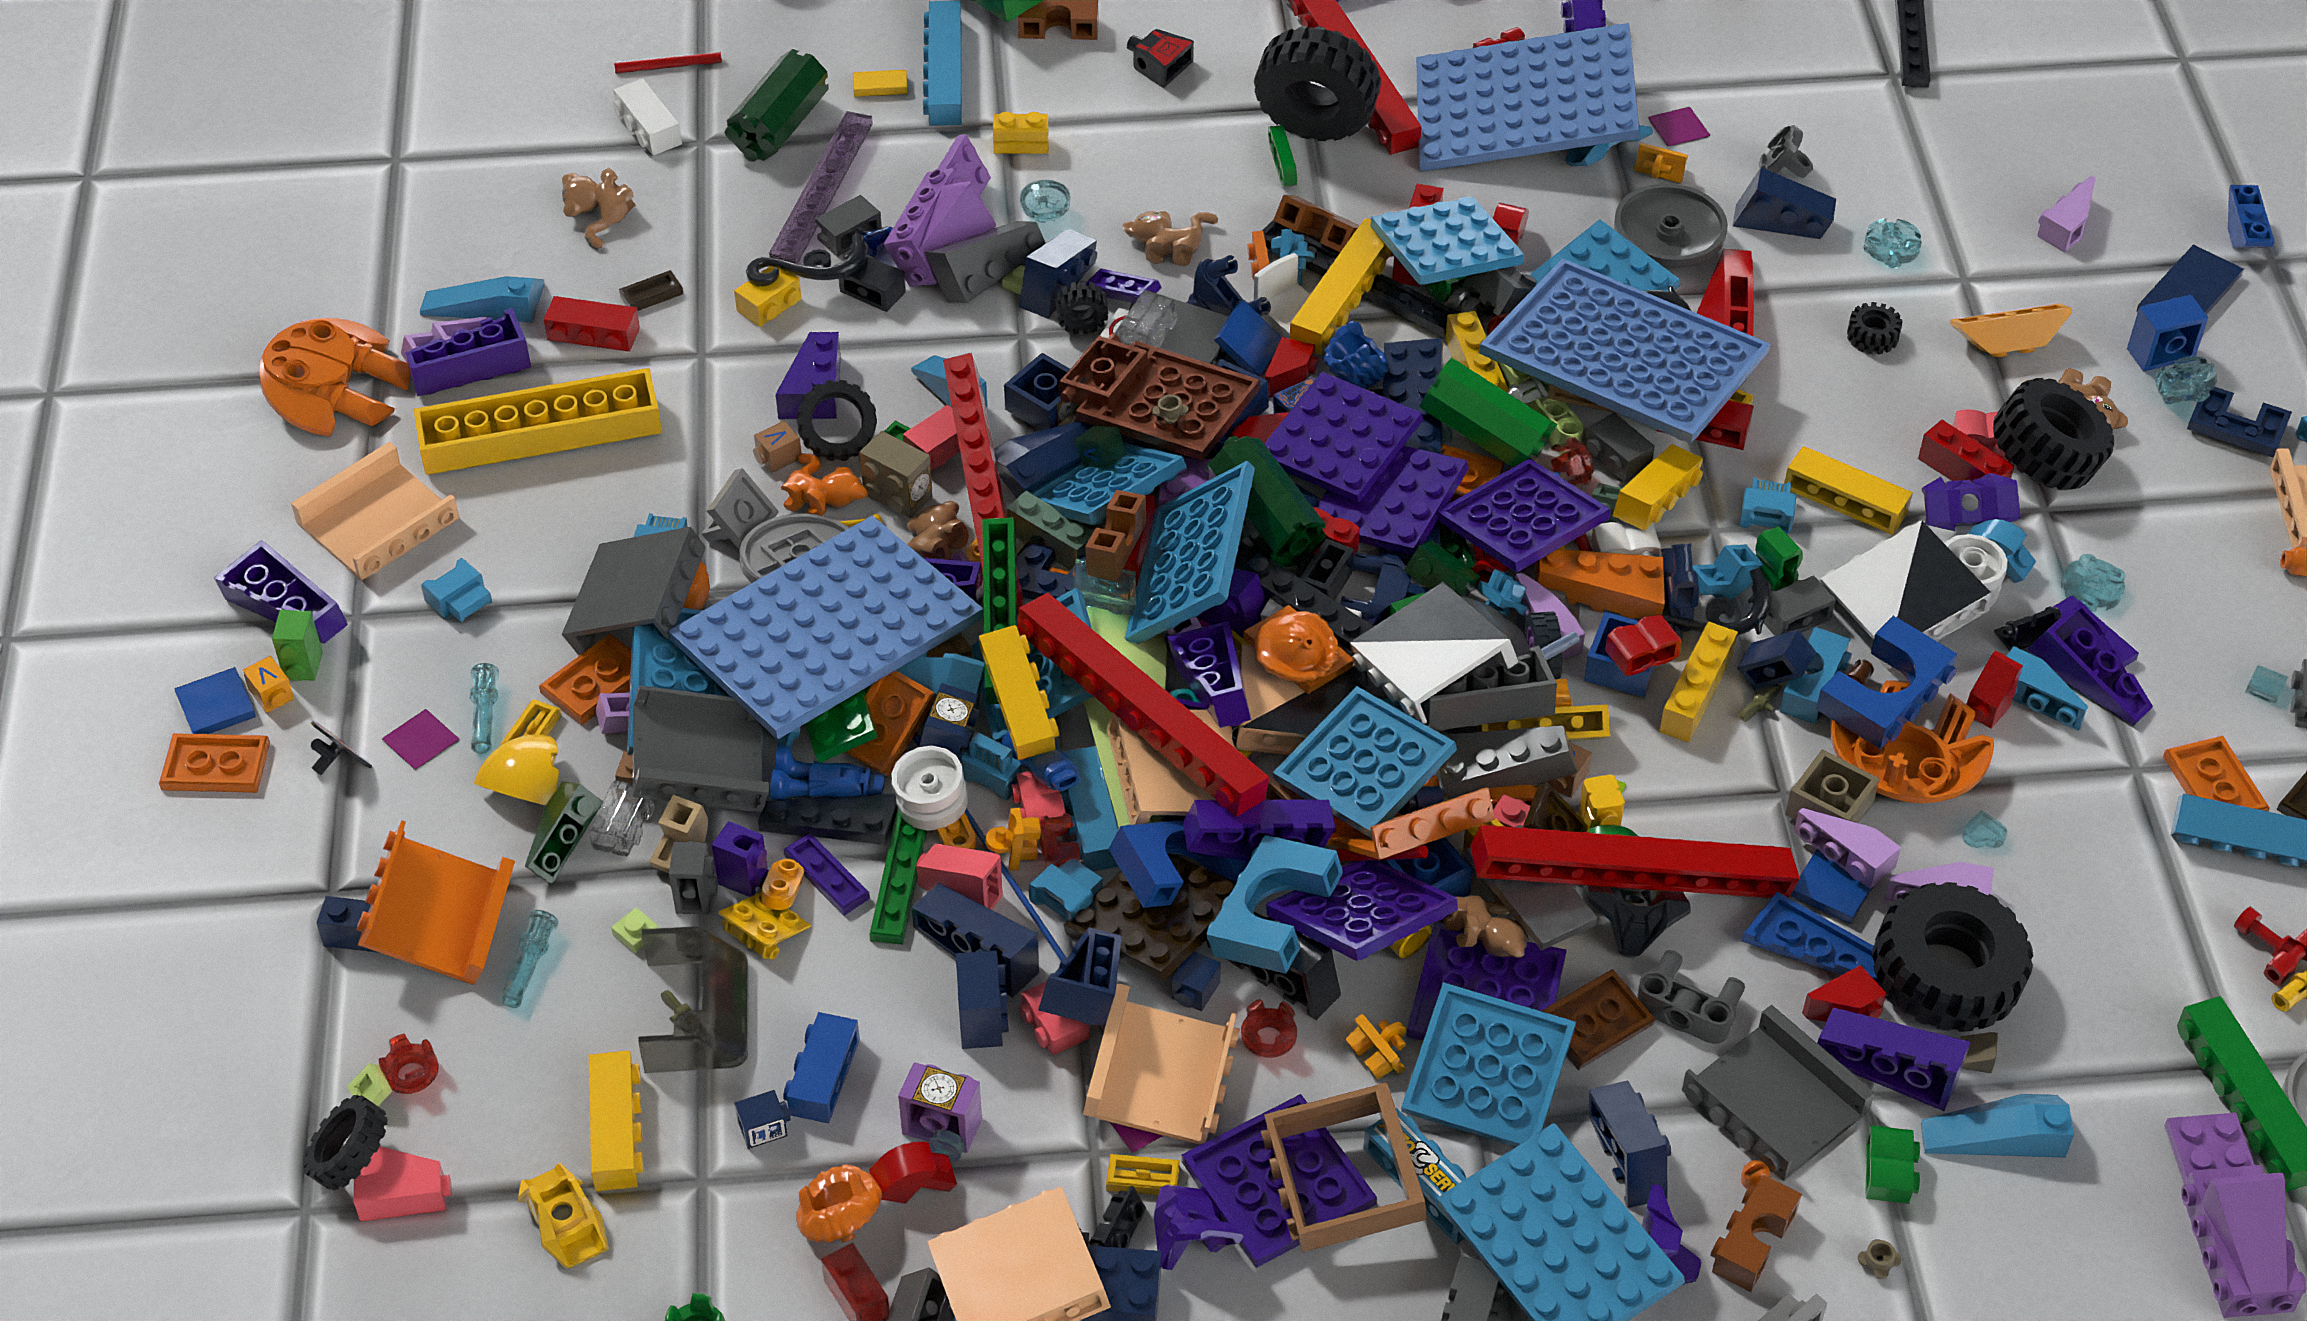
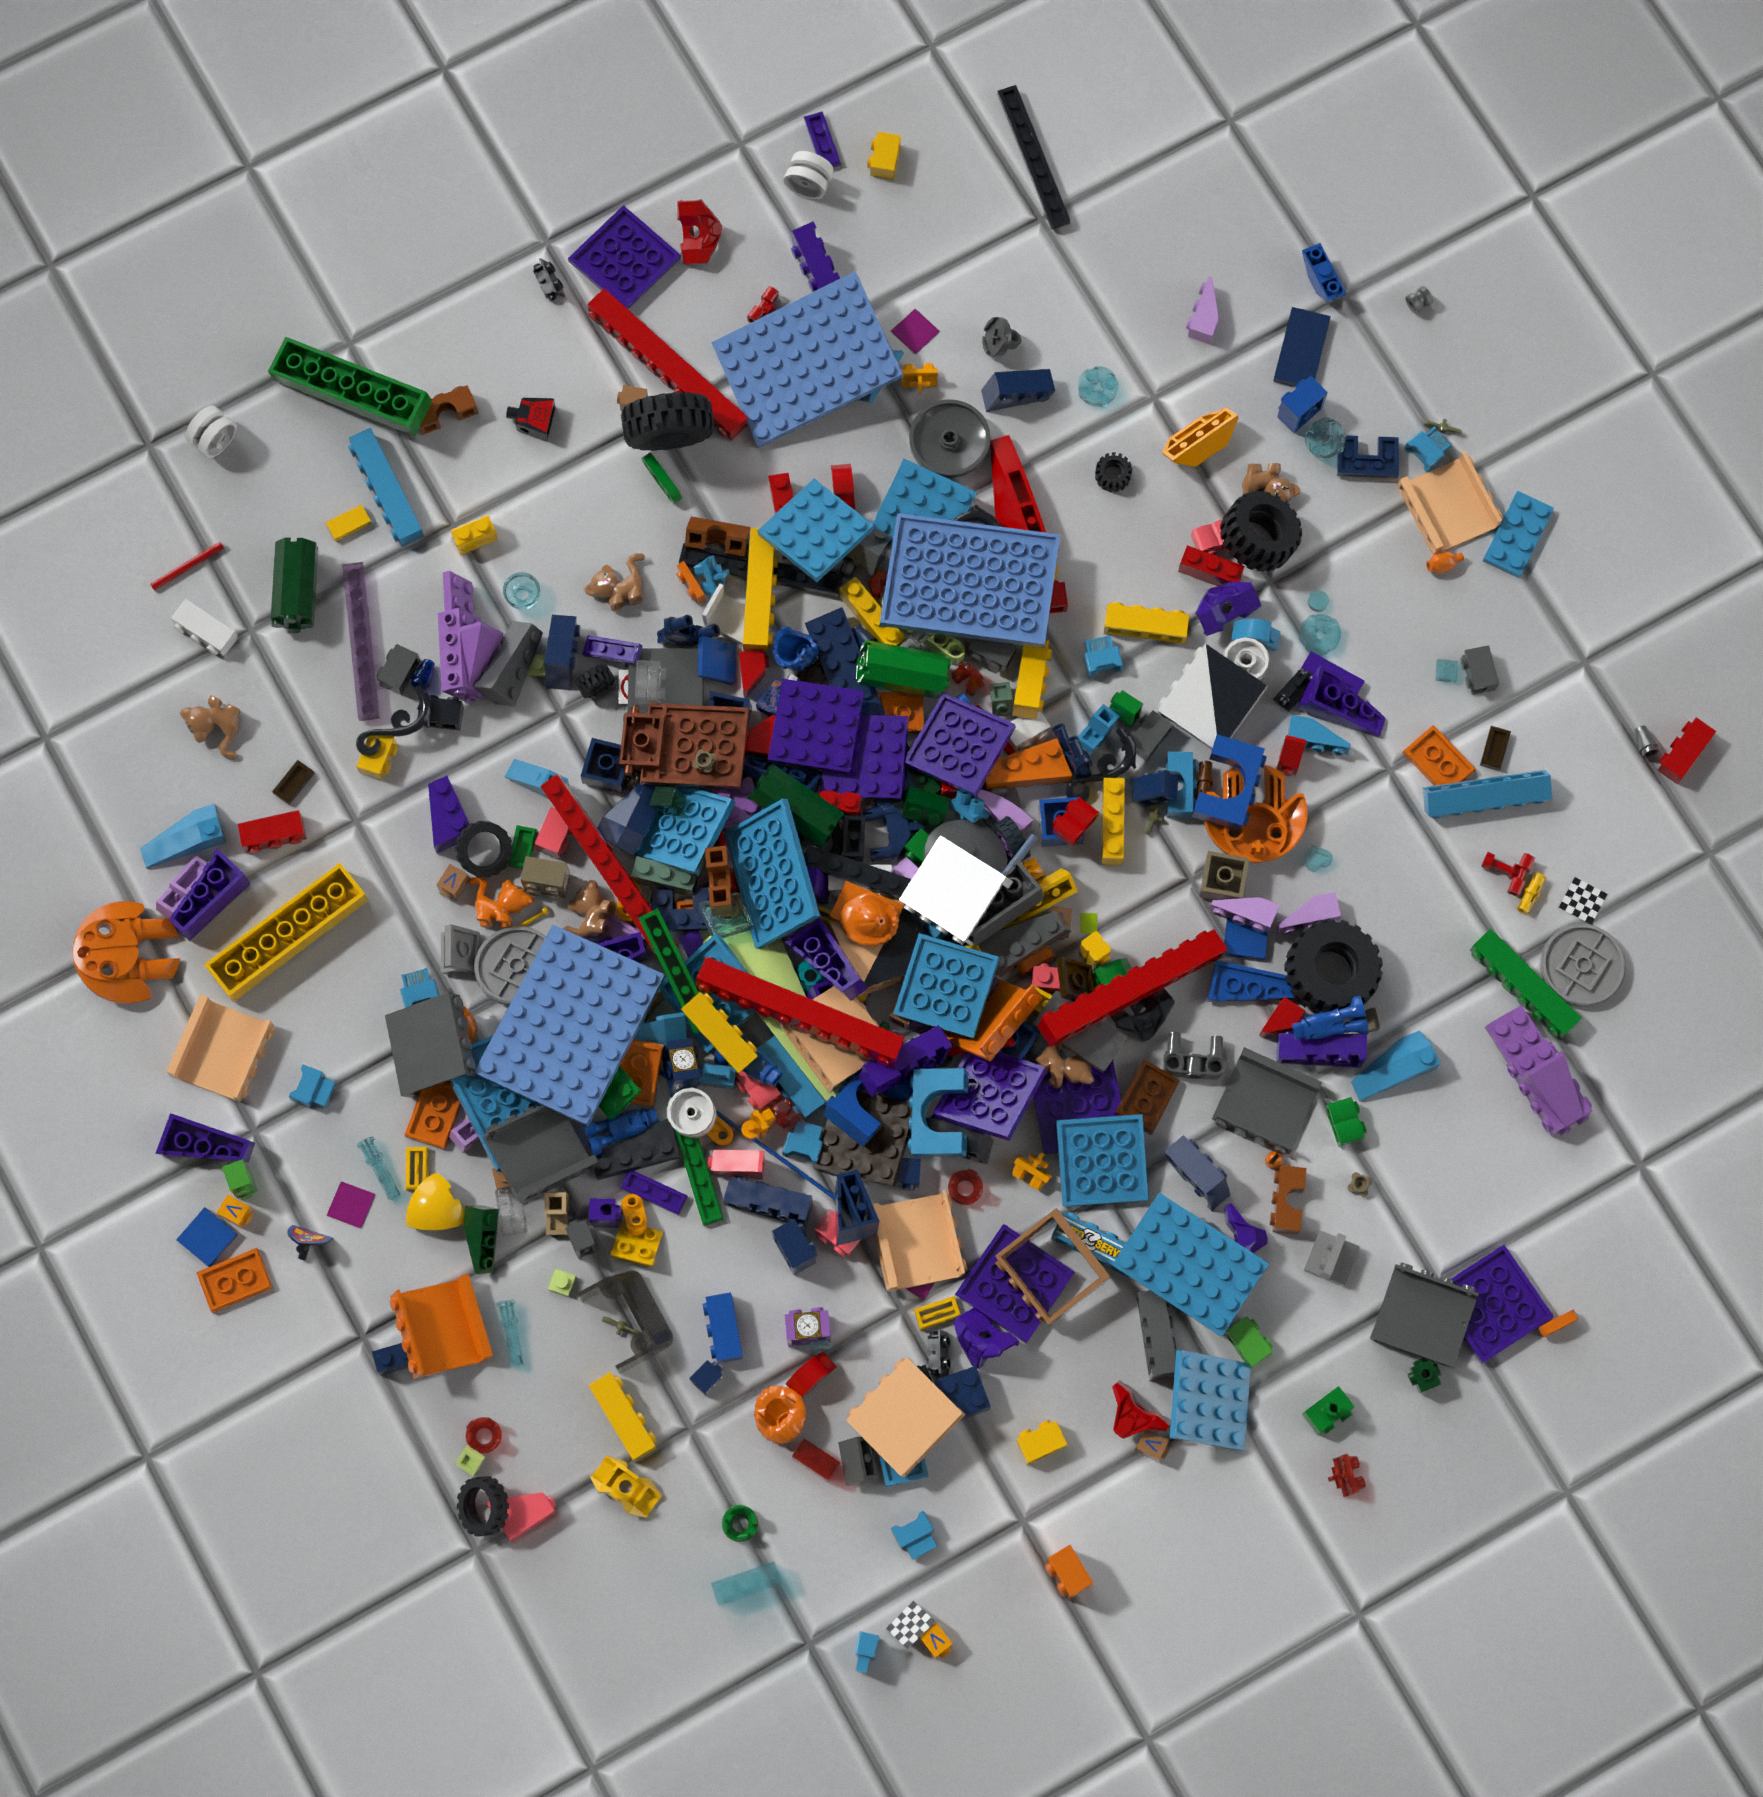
camera: 25 degrees left, 25 degrees up
(1919, 1008) = (1331, 1023): none -> blue piece
(2105, 548) = (1318, 601): none -> clear light blue tile

